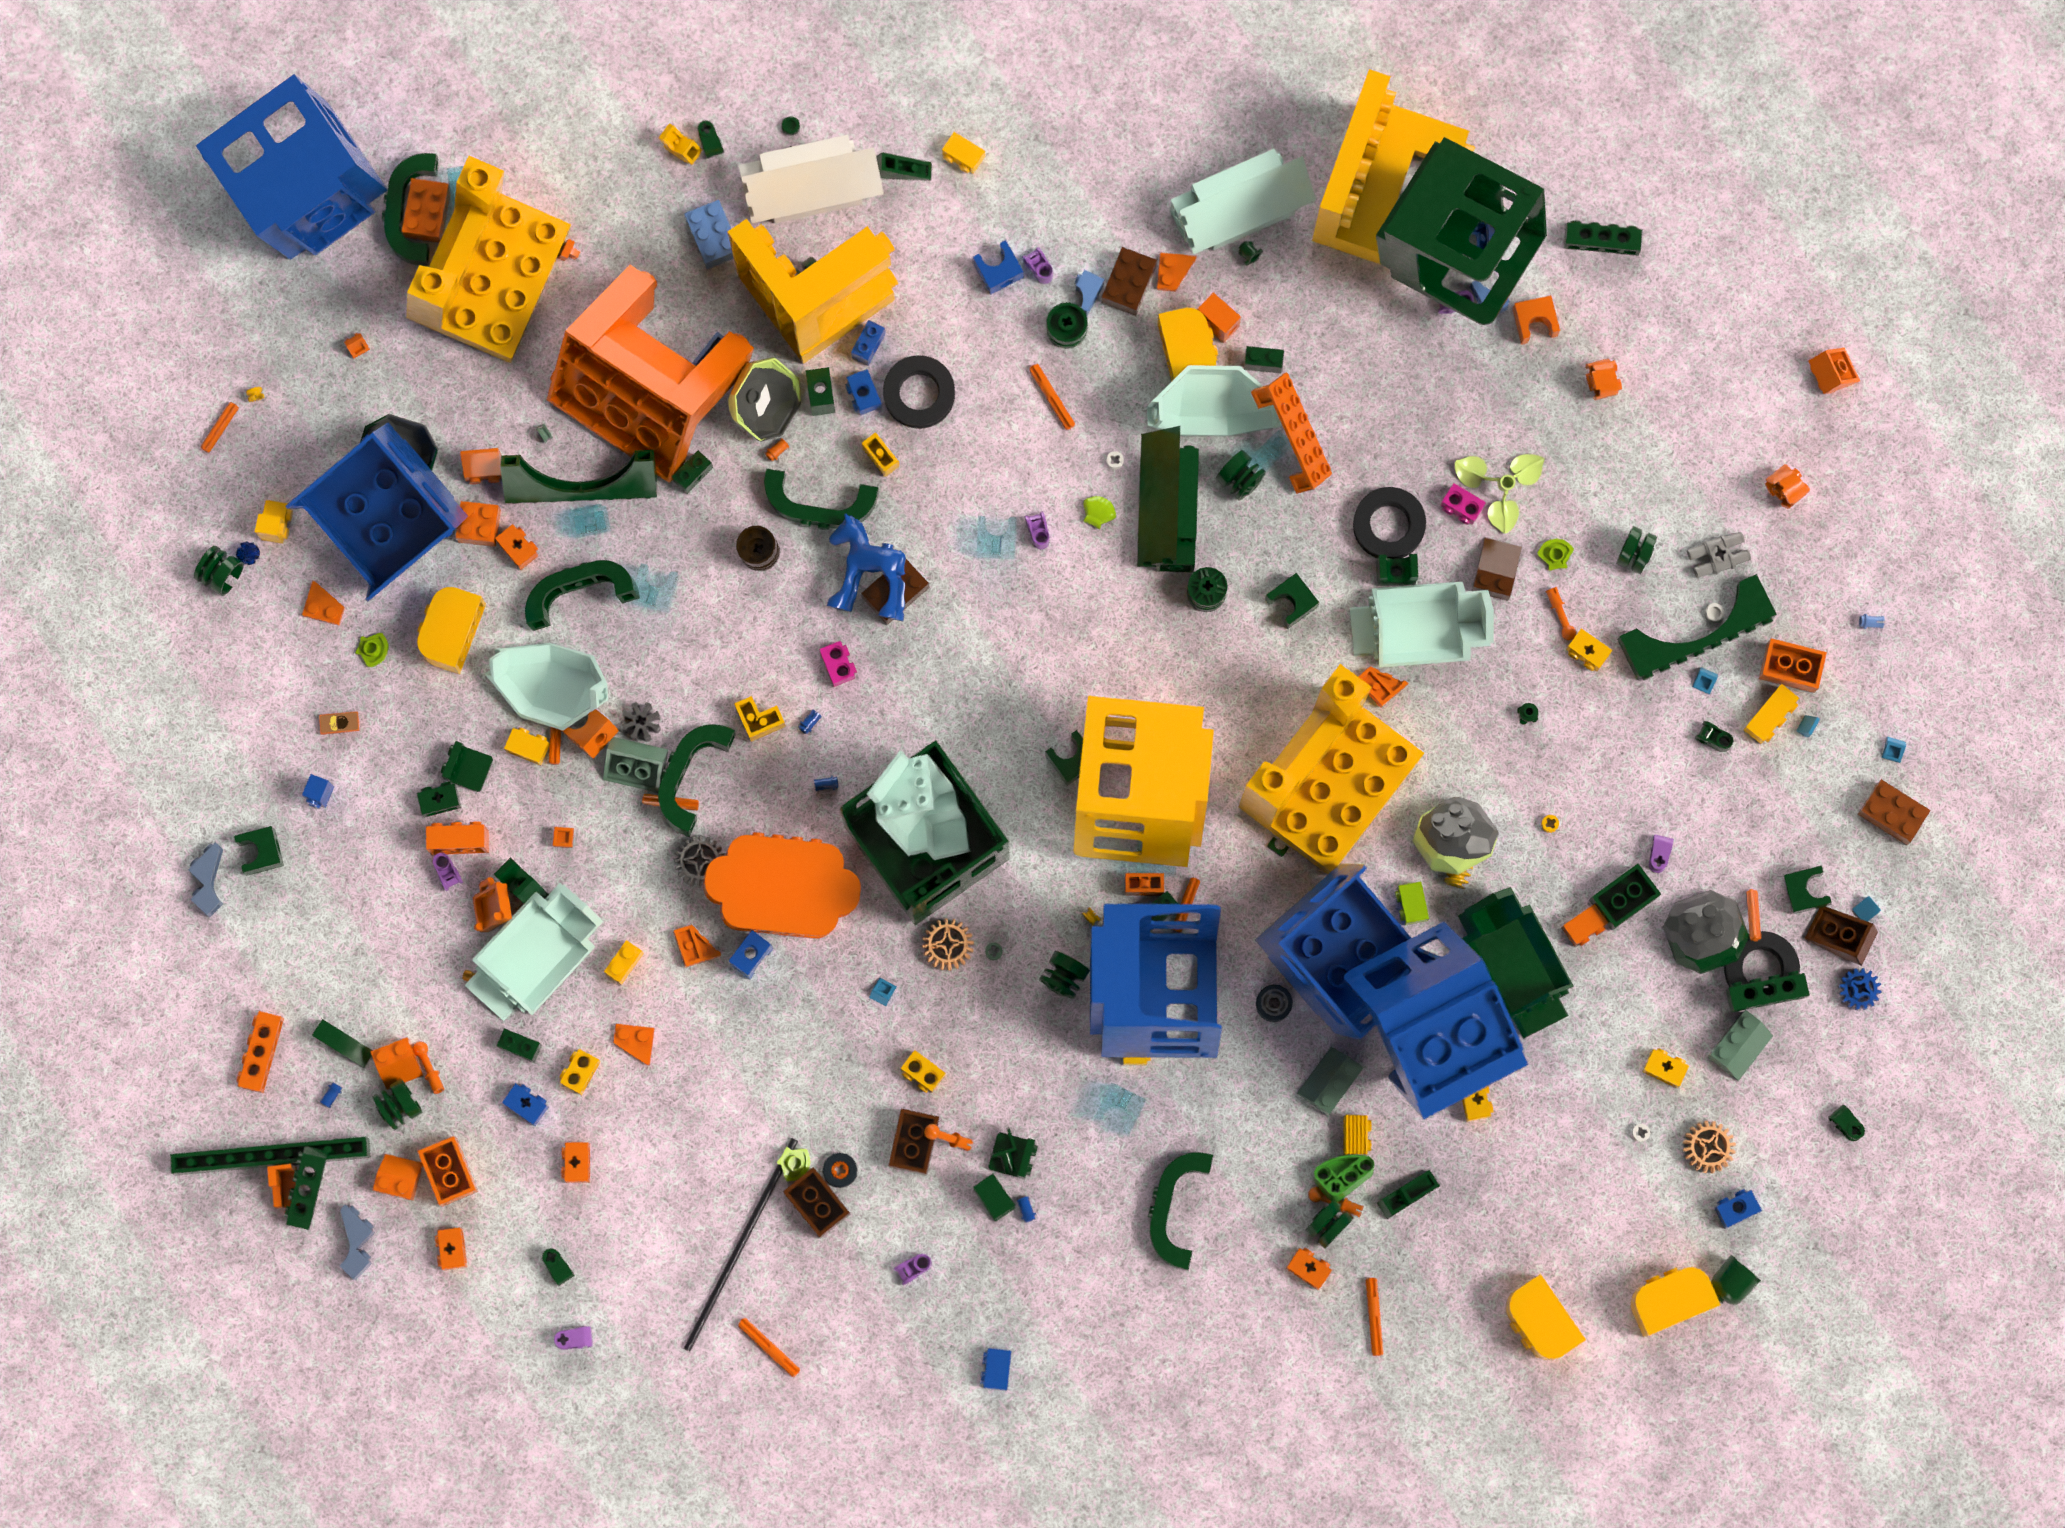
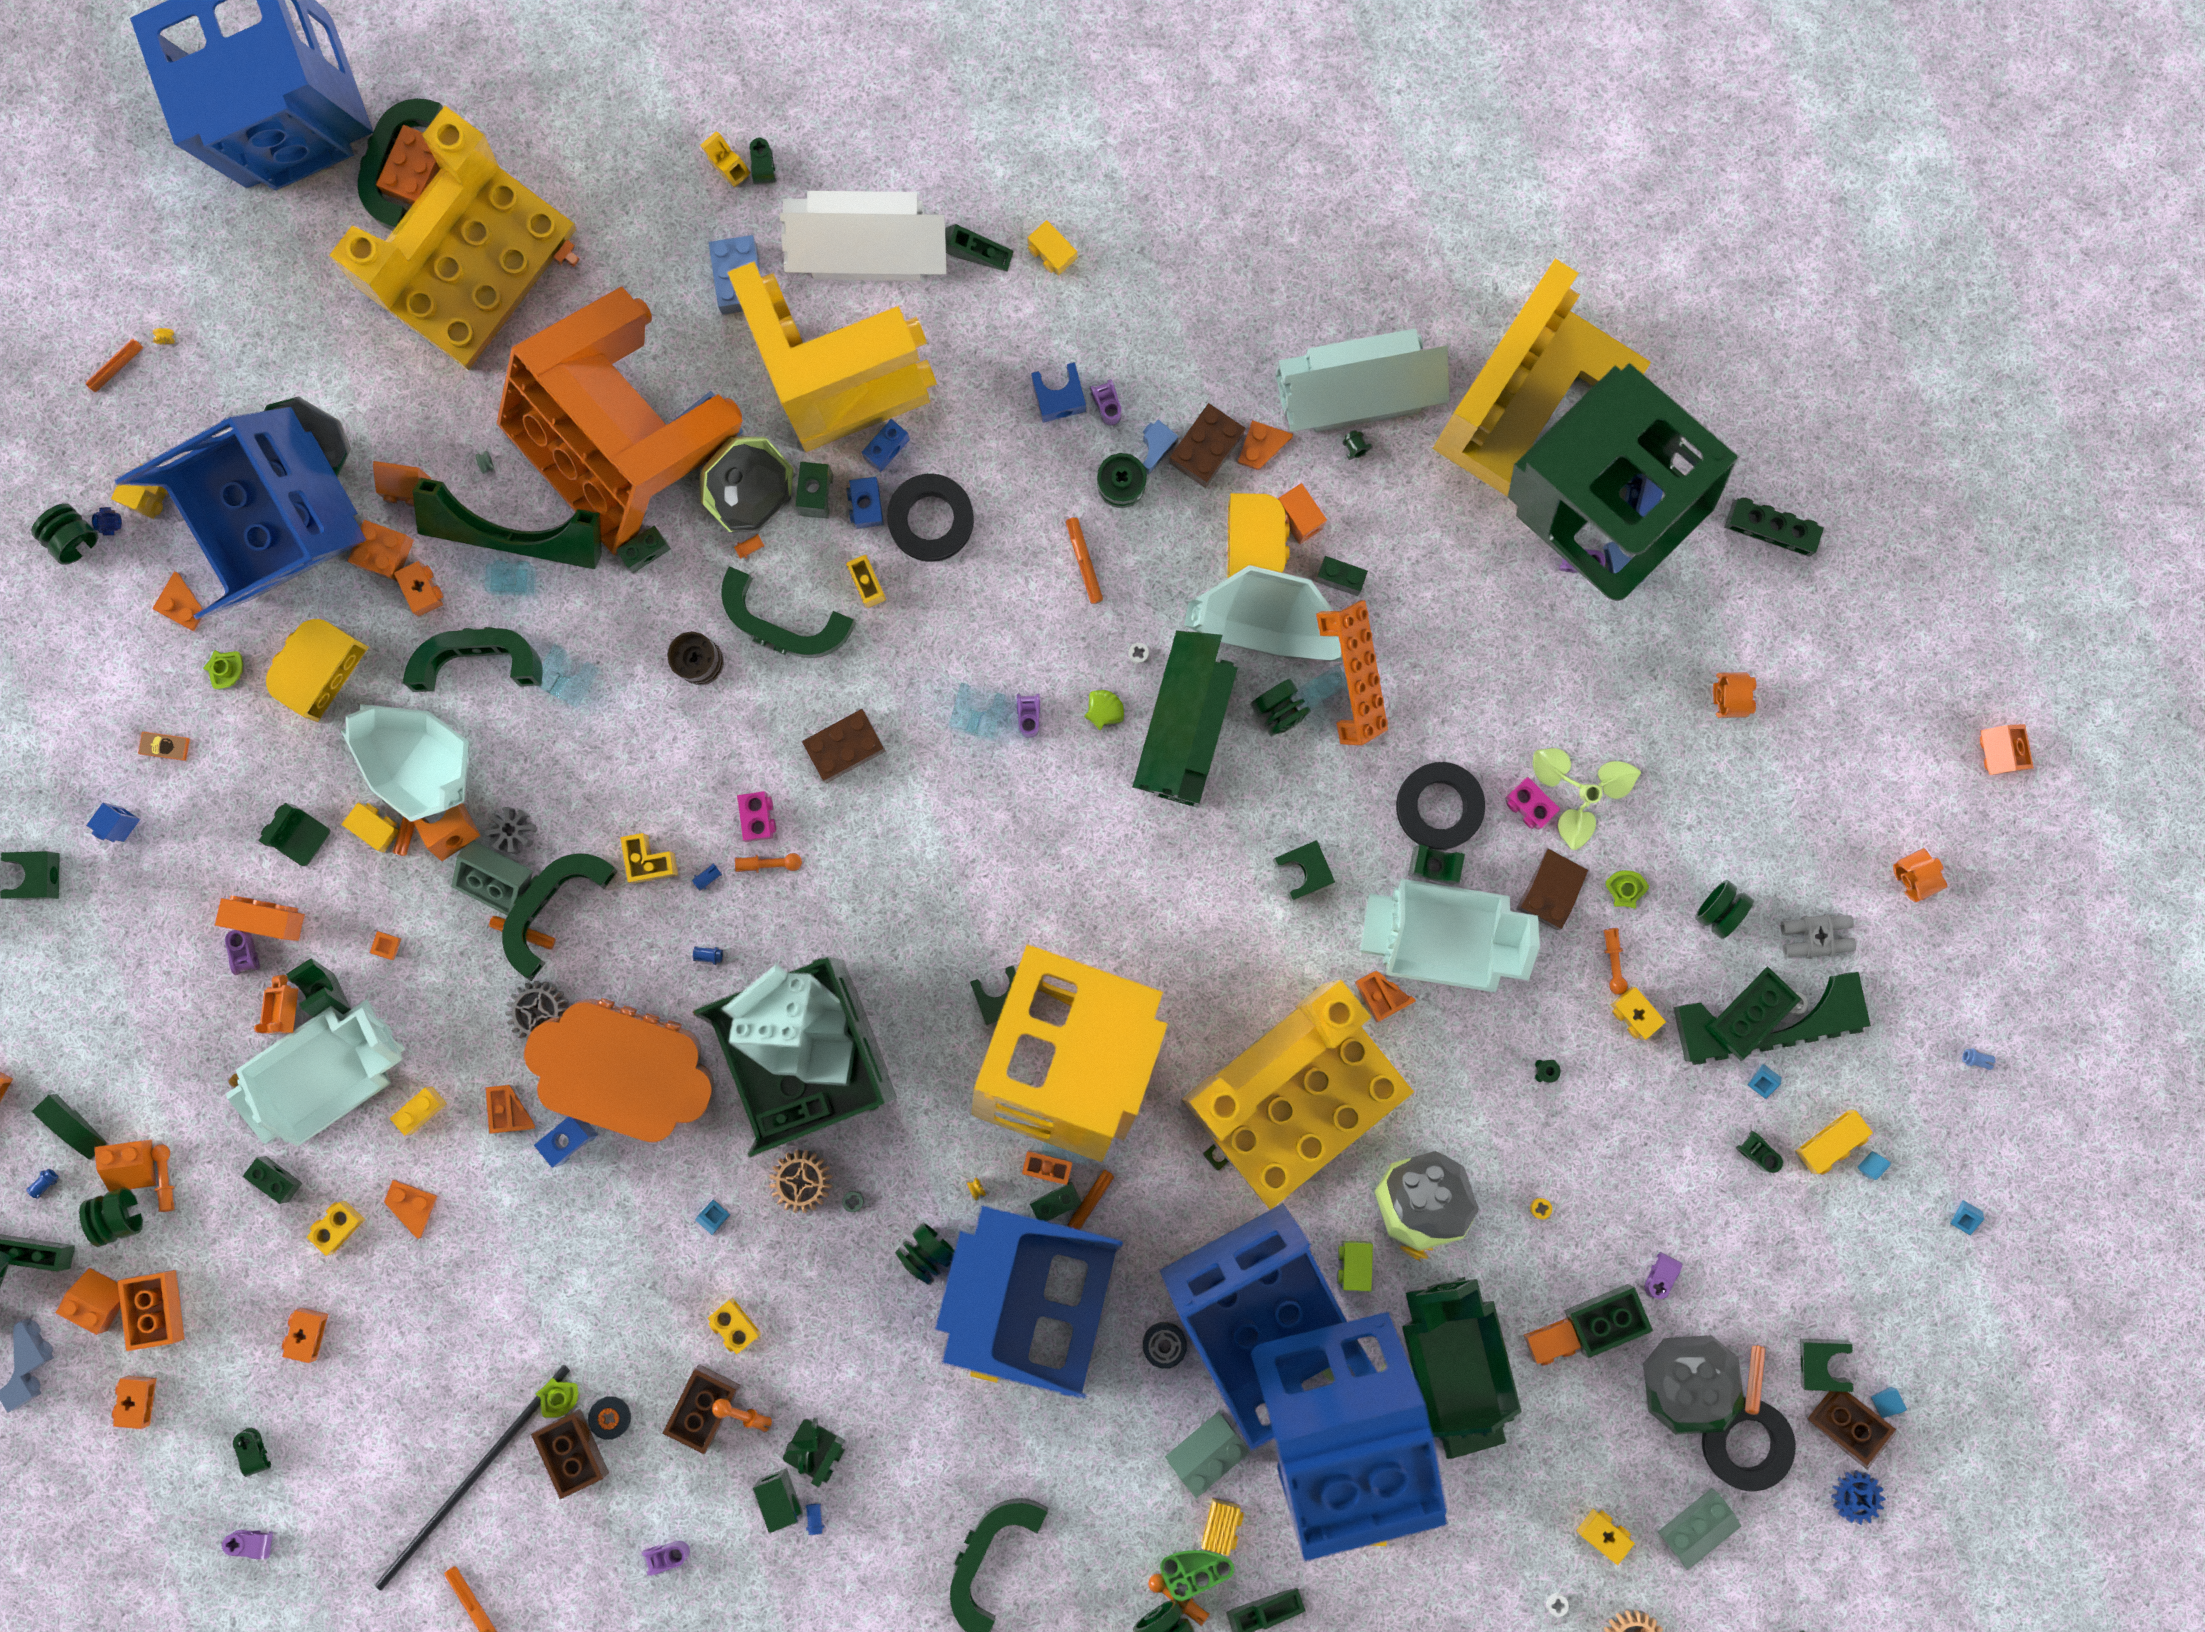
camera: 10 degrees right, 5 degrees up
(356, 345) = (294, 307): orange tile -> none
(431, 807) = (240, 867): dark green brick -> none
(514, 1102) = (251, 1248): blue brick -> none
(790, 125) = (860, 168): dark green tile -> none
(871, 559) = (817, 702): blue animal -> none
(874, 694) = (791, 862): none -> orange pin
(1125, 1101) = (960, 1419): clear light blue piece -> none
(1207, 600) = (1195, 839): dark green wheel -> none
(1533, 311) = (1675, 594): orange piece -> none
(1681, 626) = (1754, 1013): none -> dark green tile
(1792, 665) = (1874, 1091): orange brick -> none
(1798, 991) = (1787, 1487): dark green brick -> none
(1894, 812) = (1950, 1295): dark orange brick -> none

